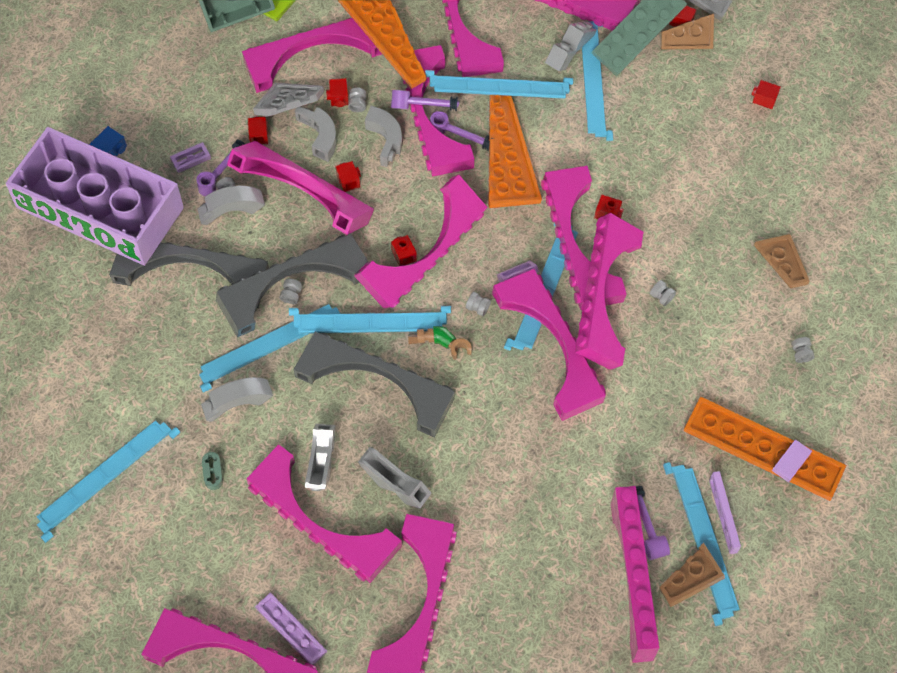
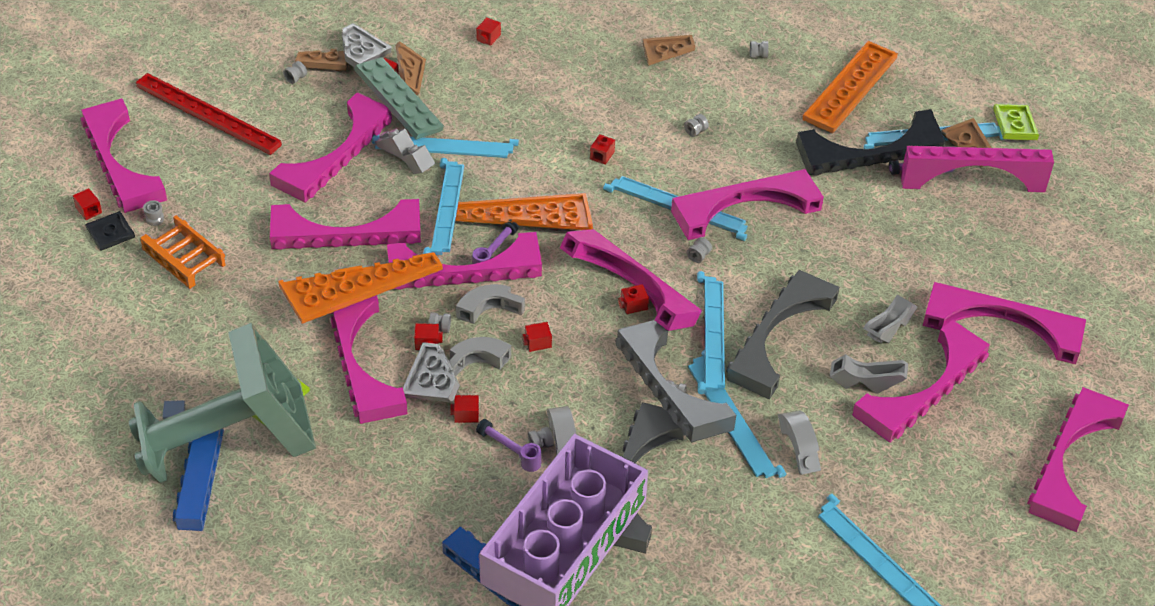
camera: 85 degrees left, 15 degrees down
(191, 160) = (494, 488): lavender tile -> none
(217, 470) = (876, 468): sand green beam -> none
(291, 629) = (1036, 415): lavender tile -> none
(346, 211) = (513, 403): dark pink arch -> none
(402, 99) = (453, 276): medium lavender piece -> none
(441, 336) = (734, 278): medium nougat piece -> none
(517, 270) = (666, 219): lavender tile -> none
(562, 192) = (585, 173): dark pink arch -> none
(595, 336) = (745, 163): dark pink arch -> none
(683, 518) = (826, 156): none -> black arch
(724, 513) = (904, 116): lavender tile -> none
(741, 632) = (1015, 122): none -> lime tile
(792, 460) = (866, 67): lavender tile -> none

